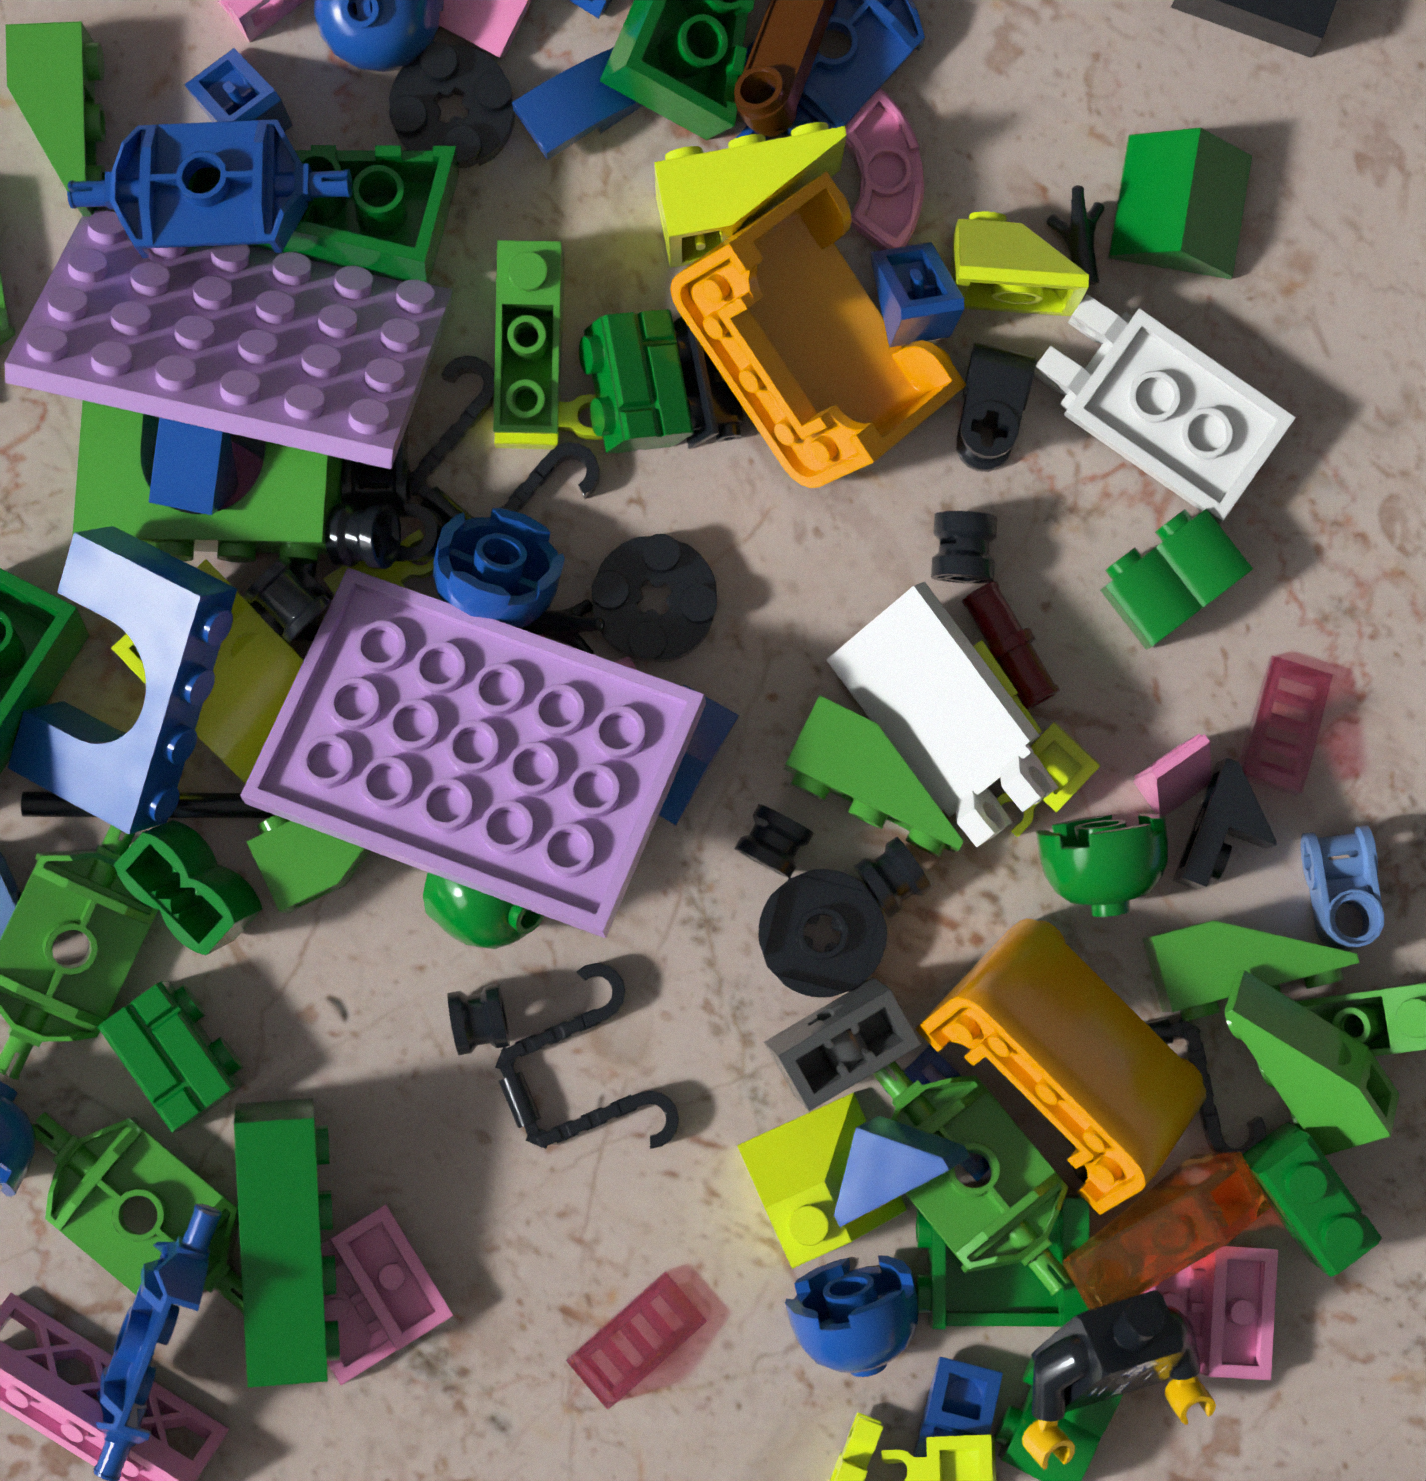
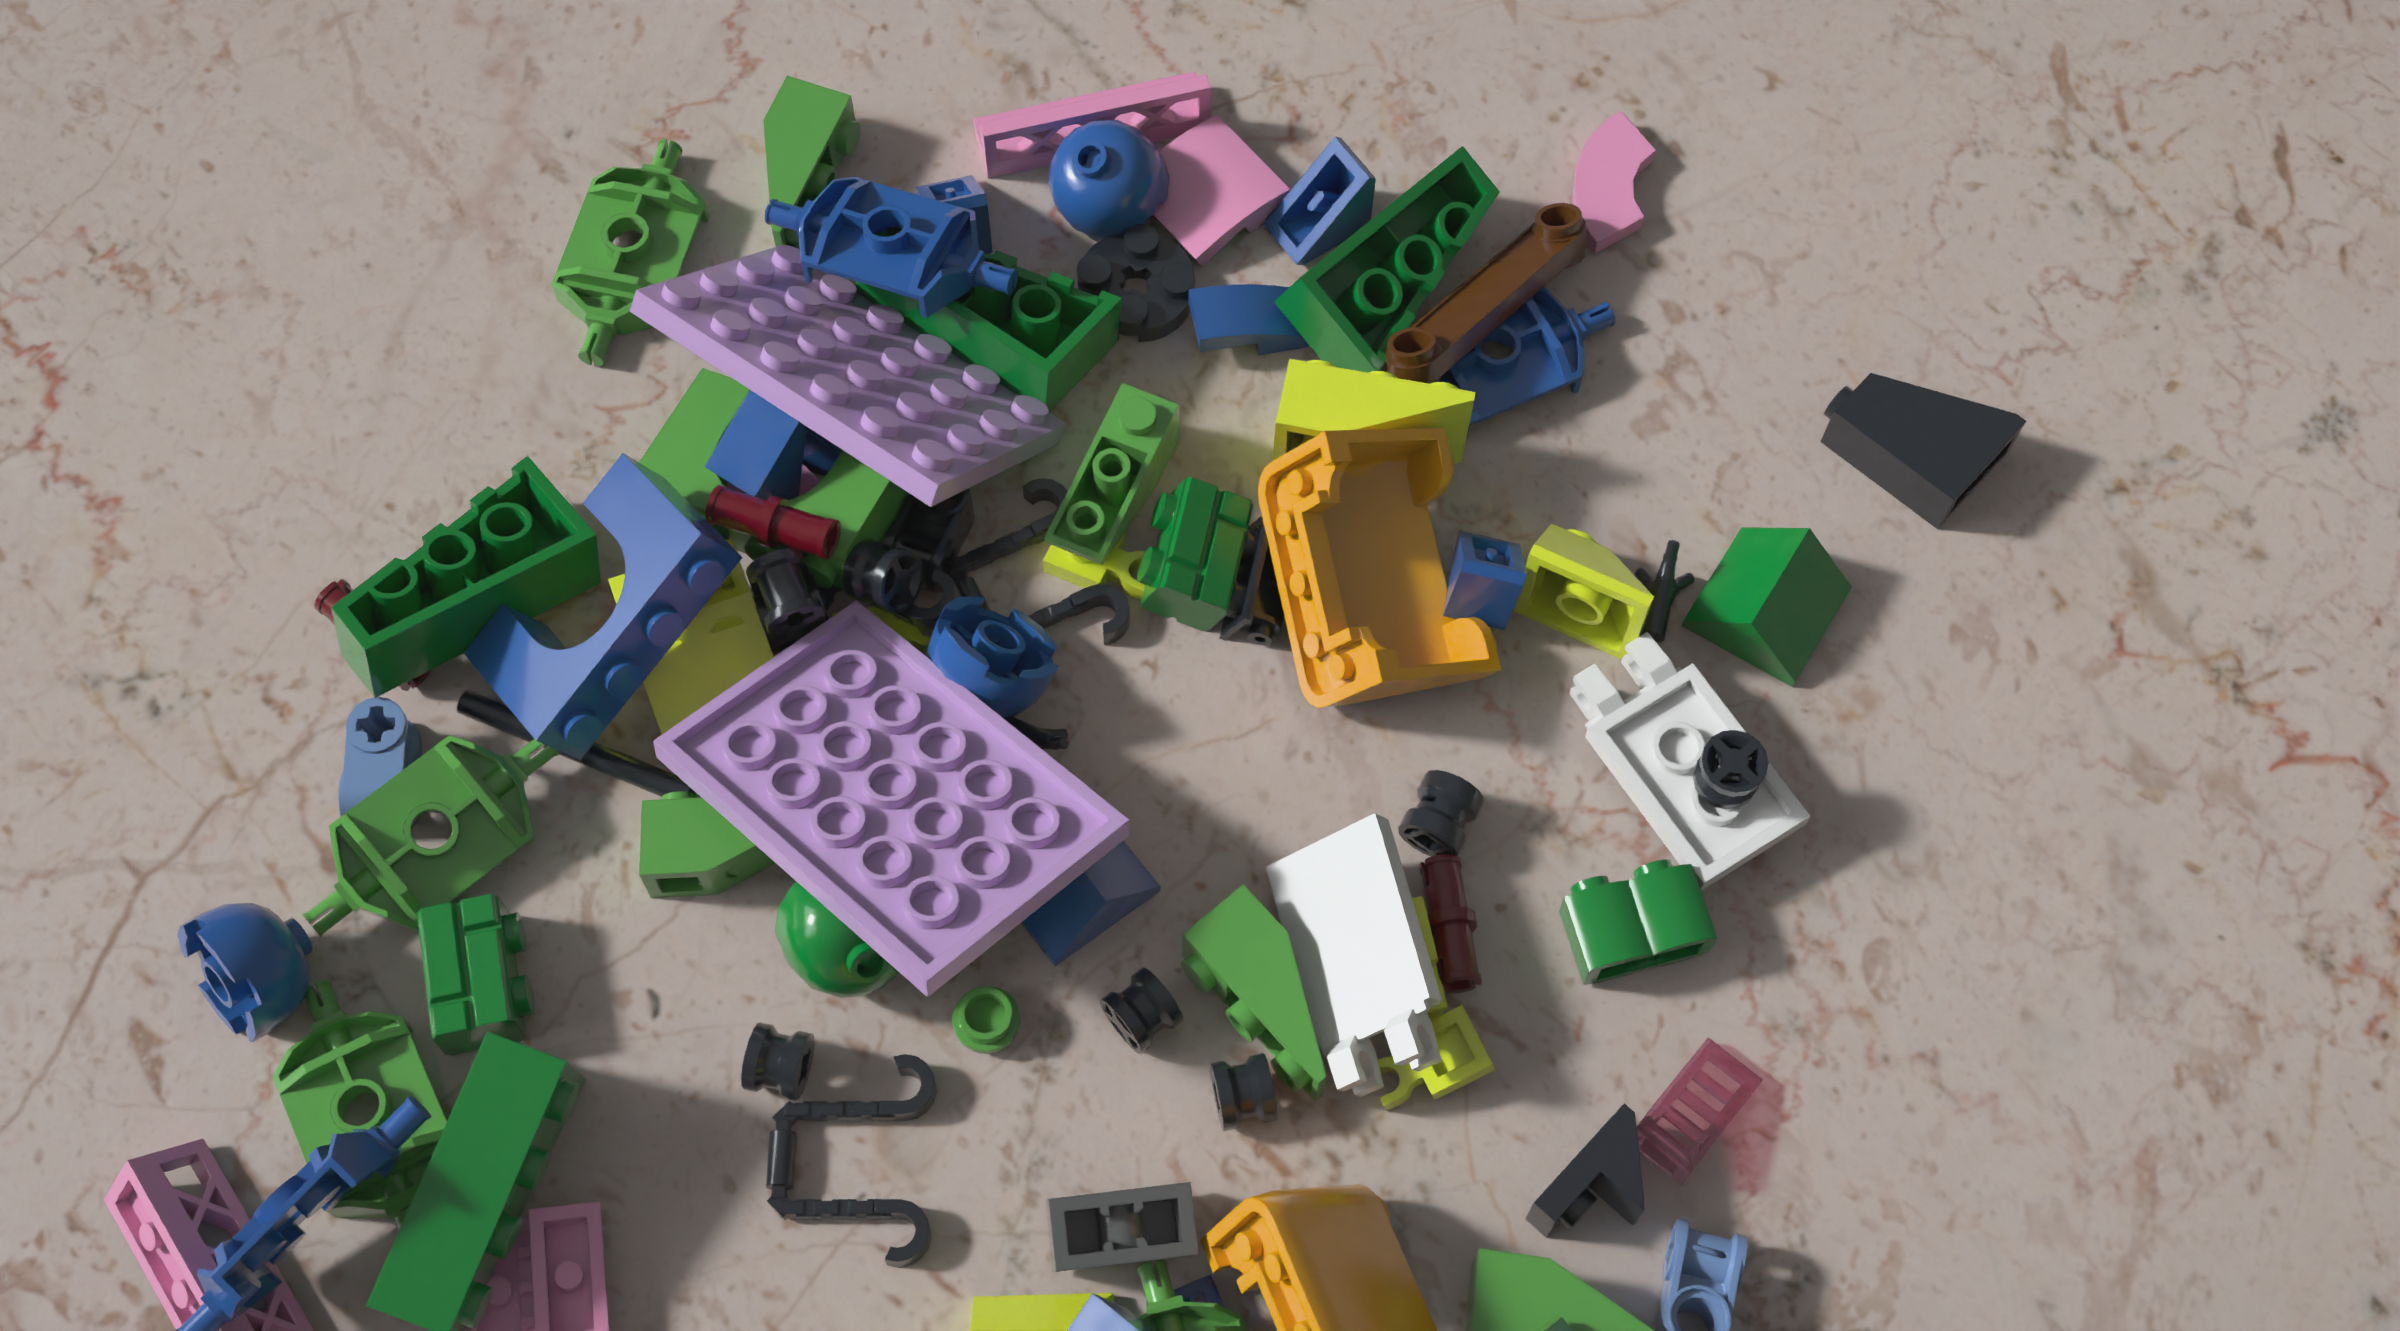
camera: 25 degrees right, 20 degrees down
(180, 876) = (568, 822): green brick -> none
(243, 534) = (773, 522): none -> dark red pin
(644, 905) = (986, 1019): none -> bright green plate
(660, 562) = (1146, 720): black plate -> none
(853, 914) = (1144, 1082): black plate -> none
(888, 173) = (1504, 477): bright pink tile -> none
(994, 398) = (1522, 699): black piece -> none
(1104, 860) = (1461, 1156): green cylinder -> none
(1176, 775) = (1567, 1101): bright pink slope -> none
(1220, 398) = (1736, 755): none -> black wheel

